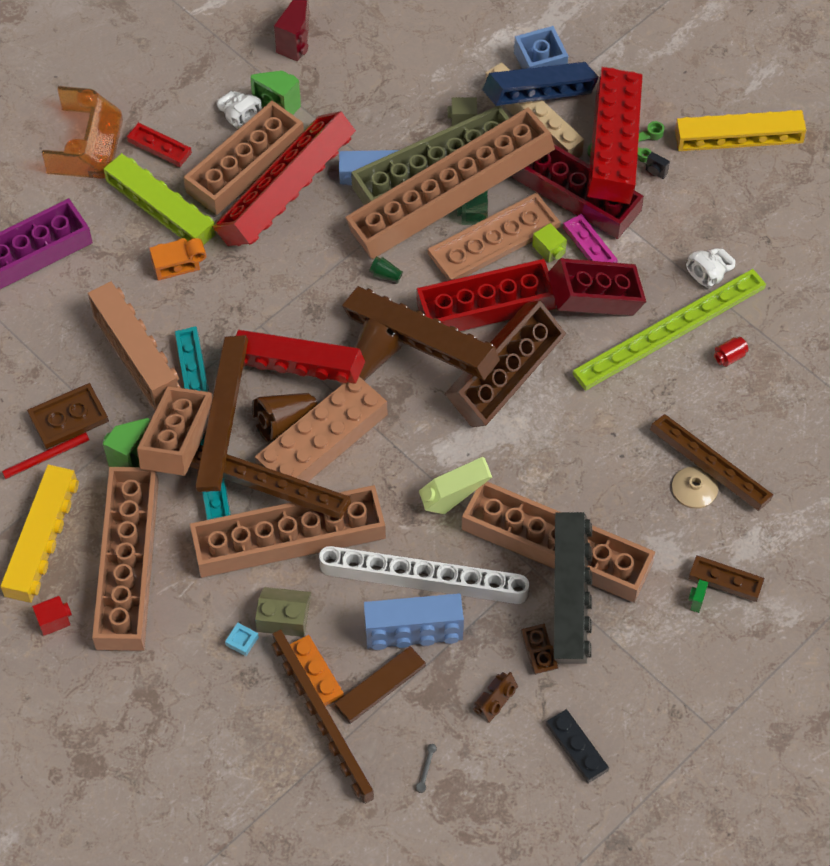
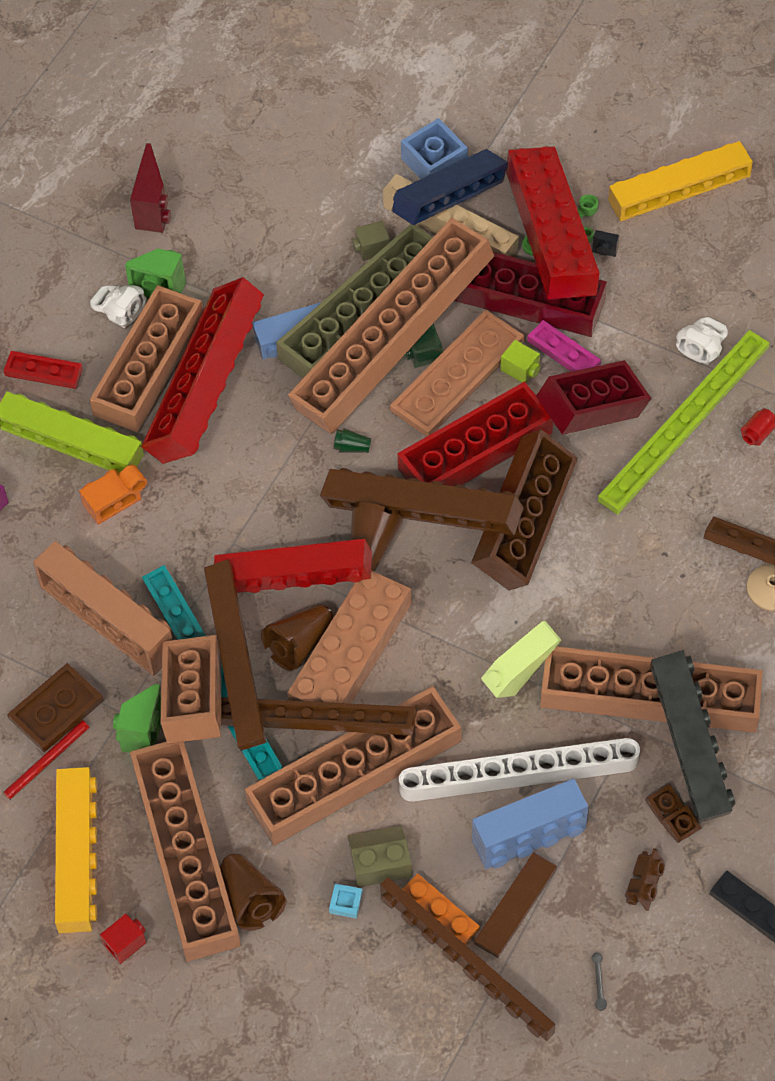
camera: 15 degrees left, 0 degrees up
(165, 610) = (250, 893): none -> reddish brown cone

